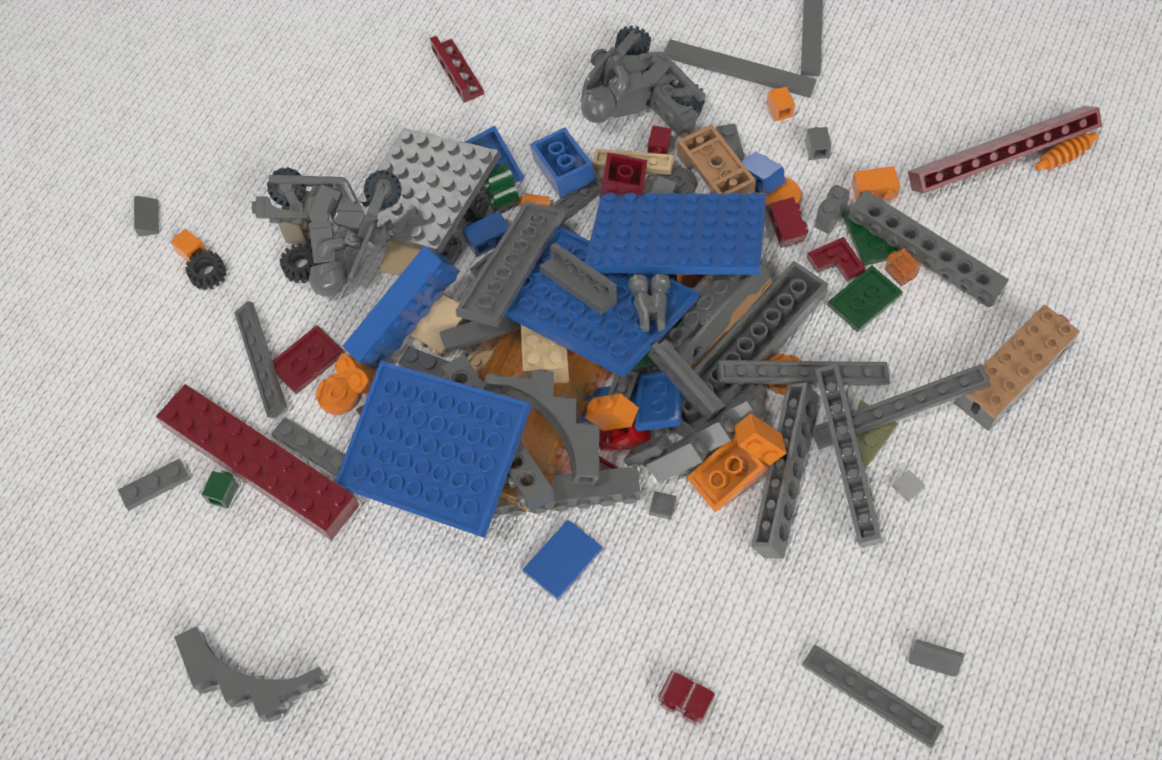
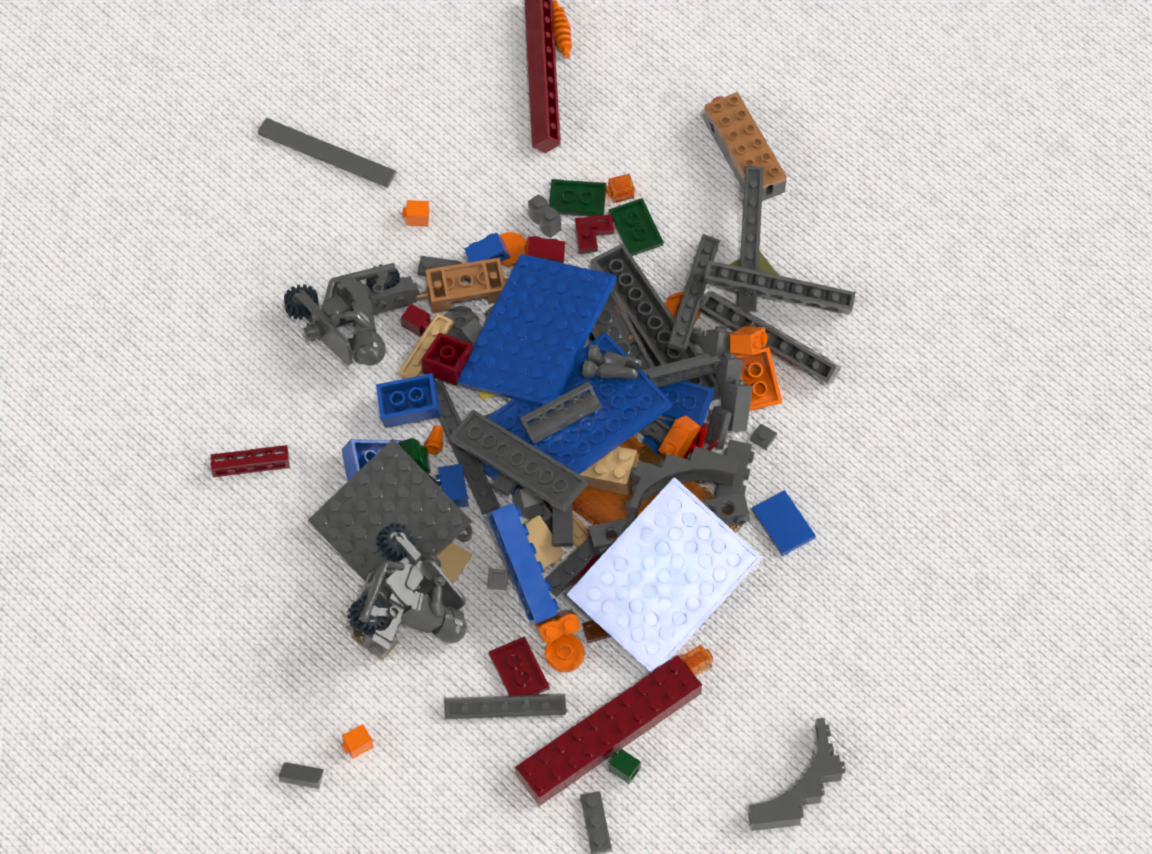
camera: 75 degrees left, 0 degrees up
(201, 261) = (389, 744): black tyre -> none
(293, 255) = (416, 661): black tyre -> none
(309, 446) = (609, 686): dark grey plate -> none
(361, 521) = (698, 660): none -> clear orange brick
(685, 697) = (926, 471): dark red brick -> none
(740, 68) = (359, 231): dark grey tile -> none
(818, 143) = (471, 200): dark grey brick -> none
(873, 696) = (963, 351): dark grey tile -> none
(879, 182) = (533, 175): orange brick -> none
(908, 485) = (811, 262): light grey tile -> none
(935, 658) = (951, 299): dark grey slope -> none
(938, 248) = (602, 163): dark grey brick -> none

